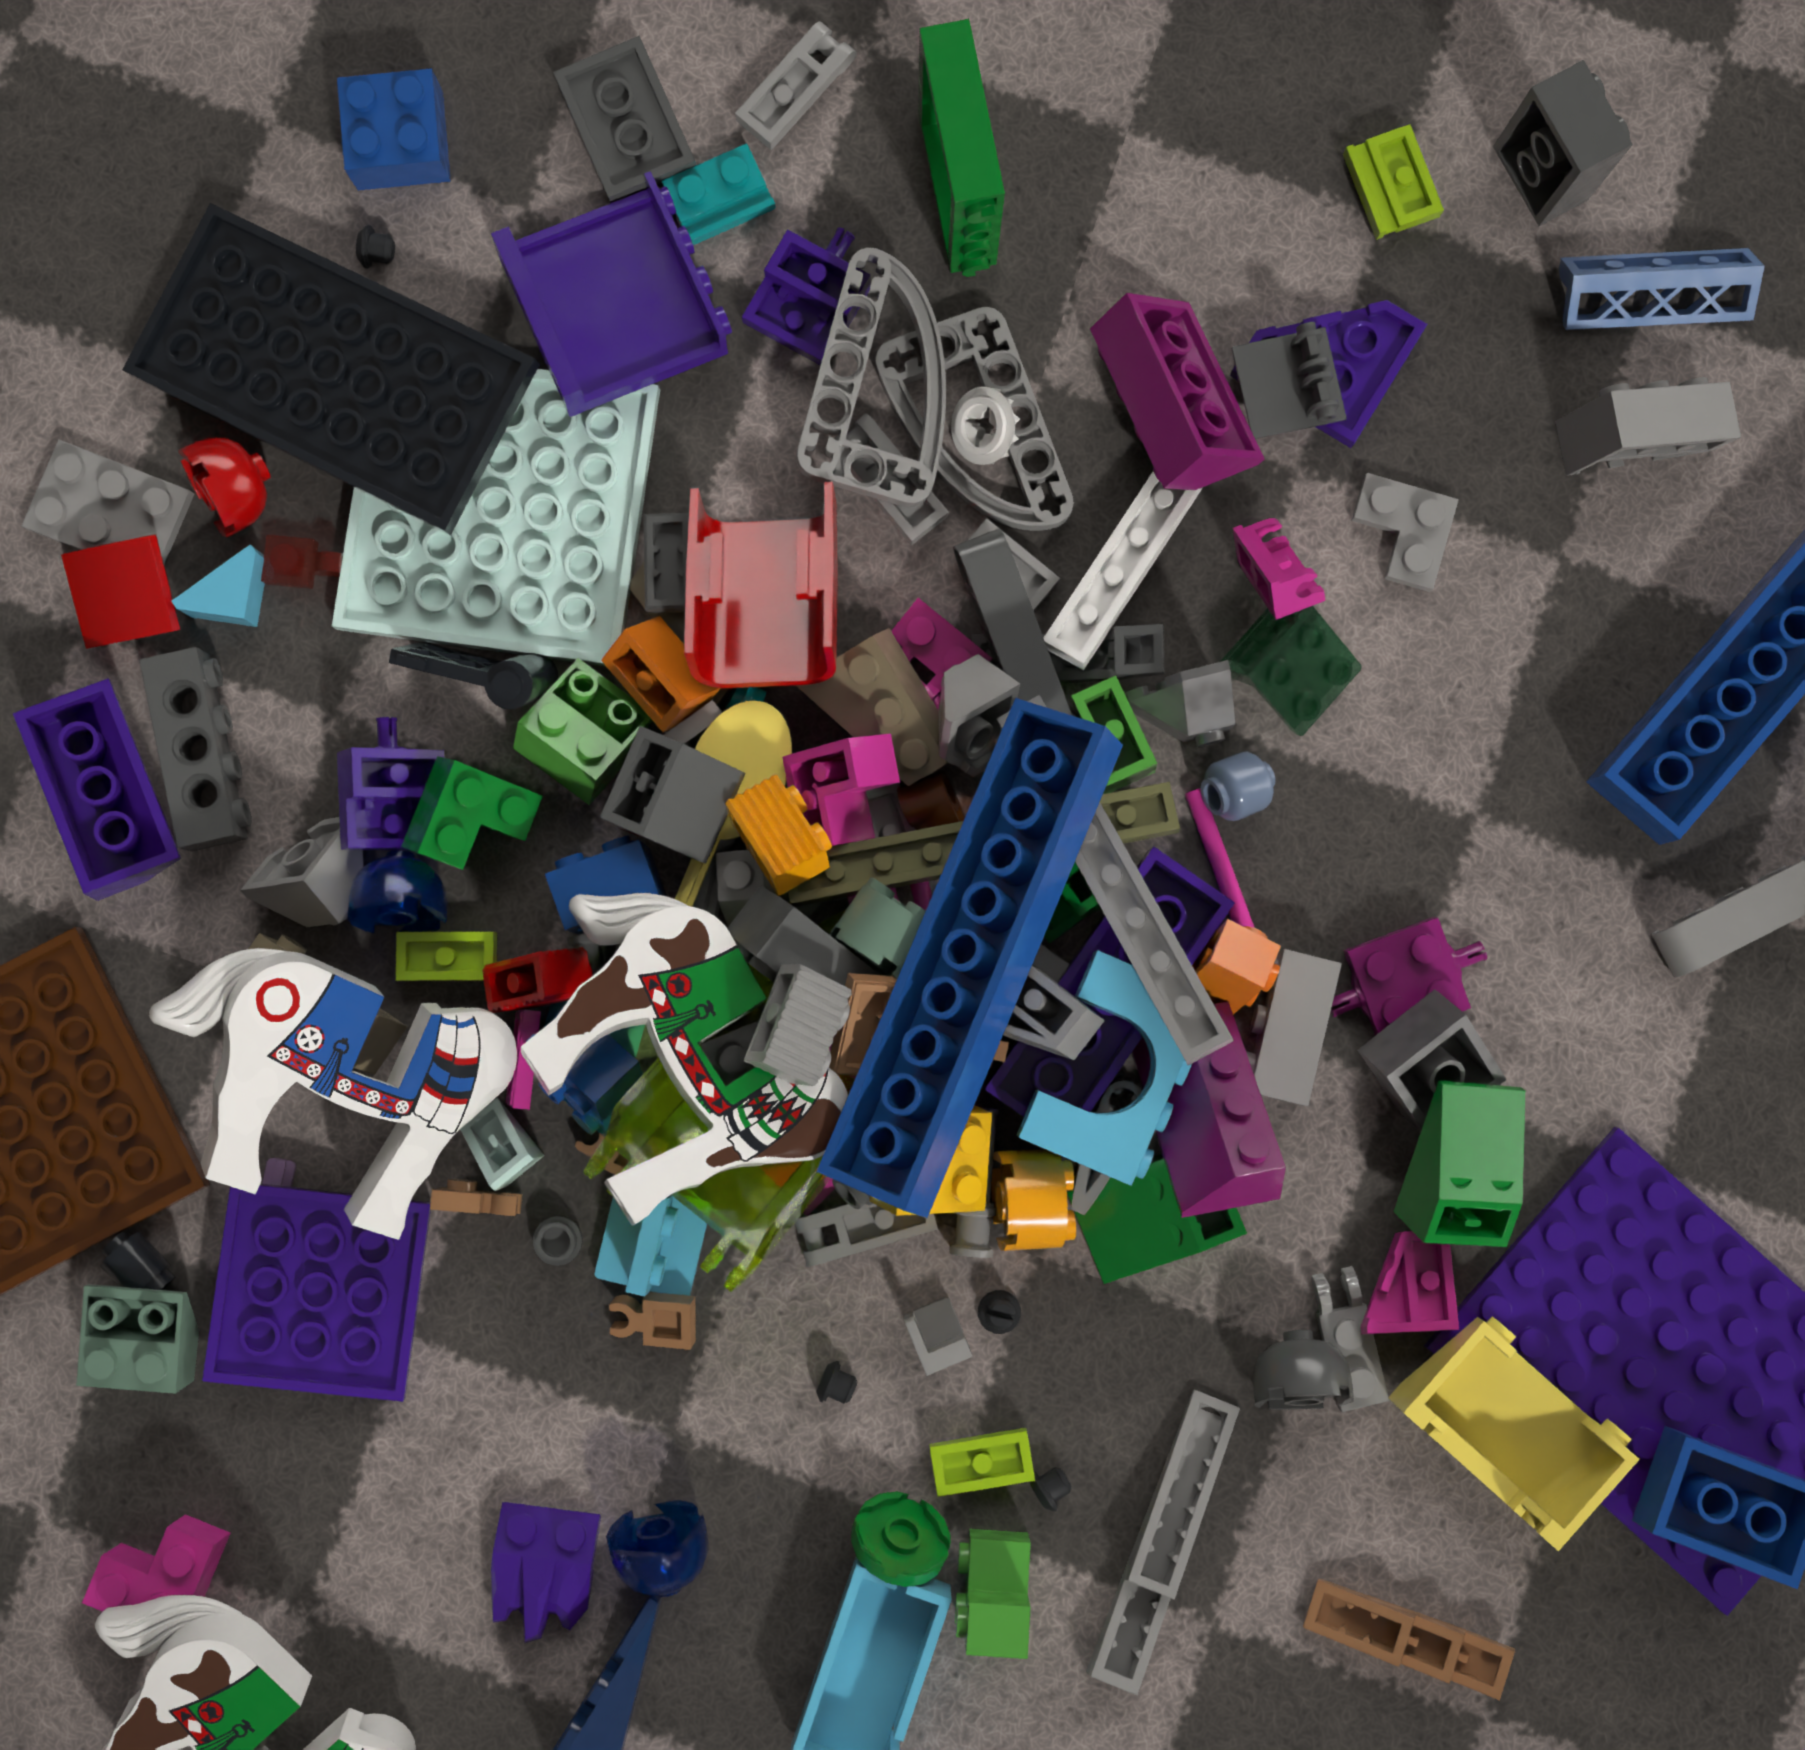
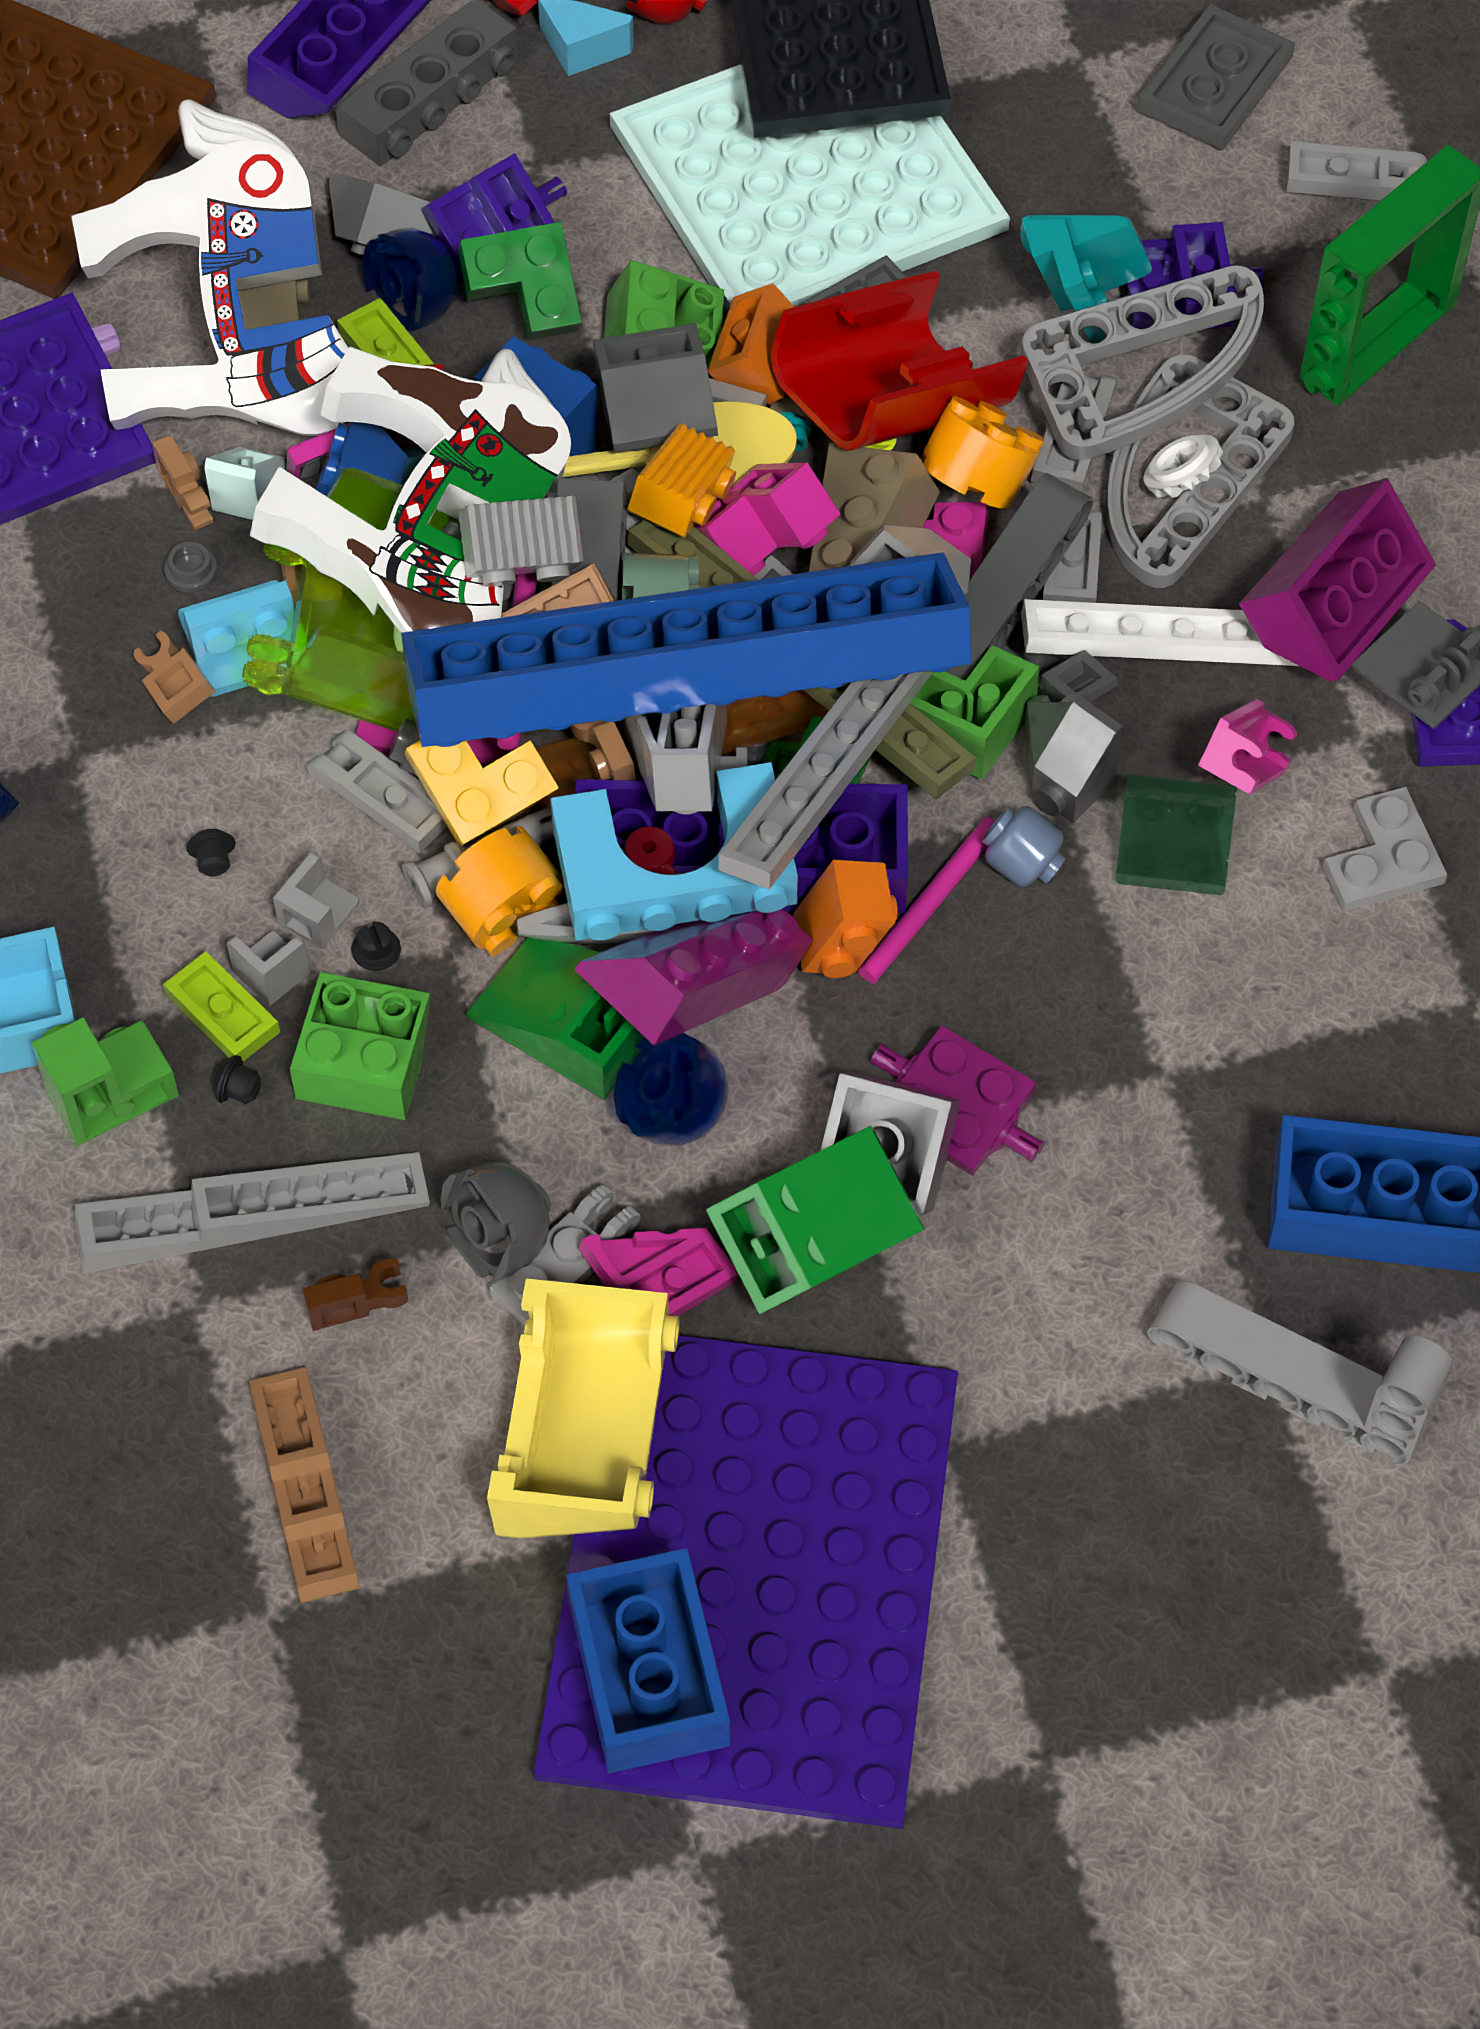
camera: 55 degrees right, 25 degrees down
(297, 561) = (644, 67): clear red plate -> none
(506, 682) = (658, 225): black piece -> none
(615, 298) = (1050, 138): dark purple panel -> none
(719, 194) = (1214, 176): teal plate -> none
(748, 369) = (1084, 257): none -> teal piece
(885, 576) = (981, 452): none -> light orange brick
(900, 1539) = (102, 967): green tile -> none
(967, 1404) = (270, 965): none -> light grey panel
(1092, 1386) = (361, 1046): none -> bright green slope
(1106, 1080) = (652, 850): none -> dark red piece
(1286, 1526) = (348, 1298): none -> reddish brown plate
(1293, 1026) = (831, 1021): light grey brick -> none
(1304, 1197) = (672, 1091): none -> clear blue cylinder

